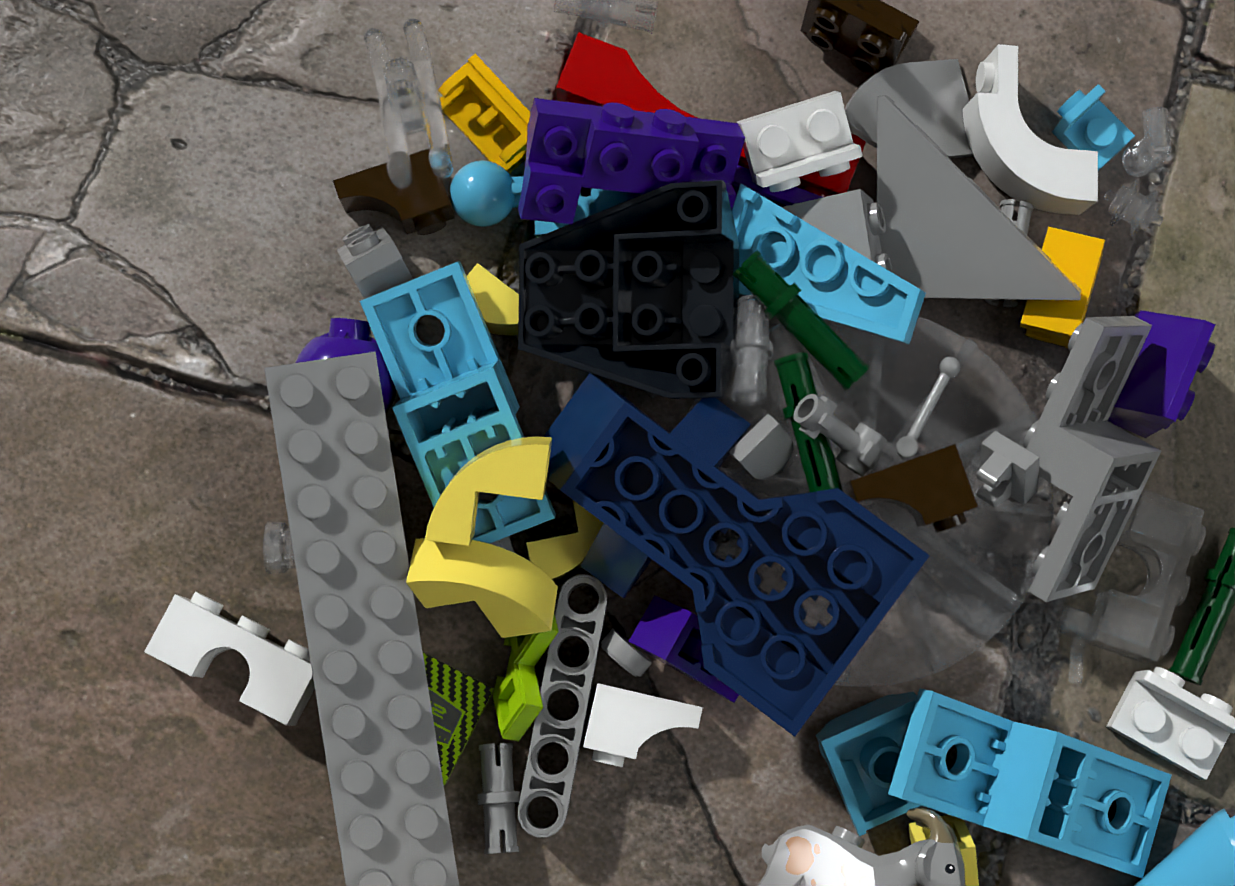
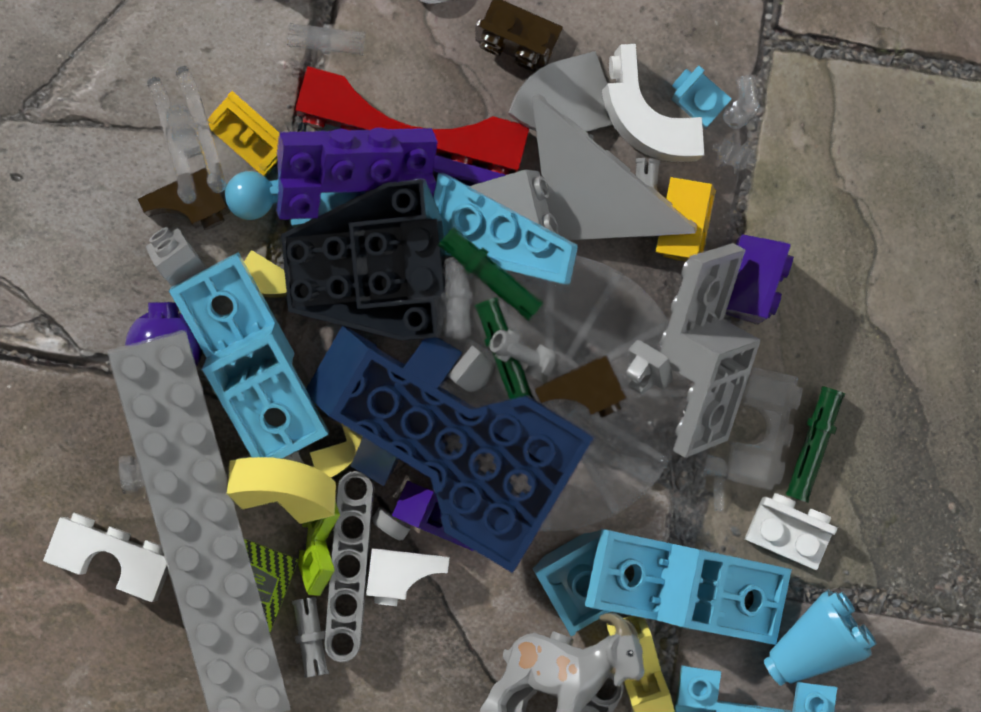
camera: 10 degrees left, 5 degrees up
(507, 469) = (287, 406): light yellow brick -> none
(799, 142) = (478, 137): white bracket -> none
(907, 445) = (576, 356): light grey hinge -> none

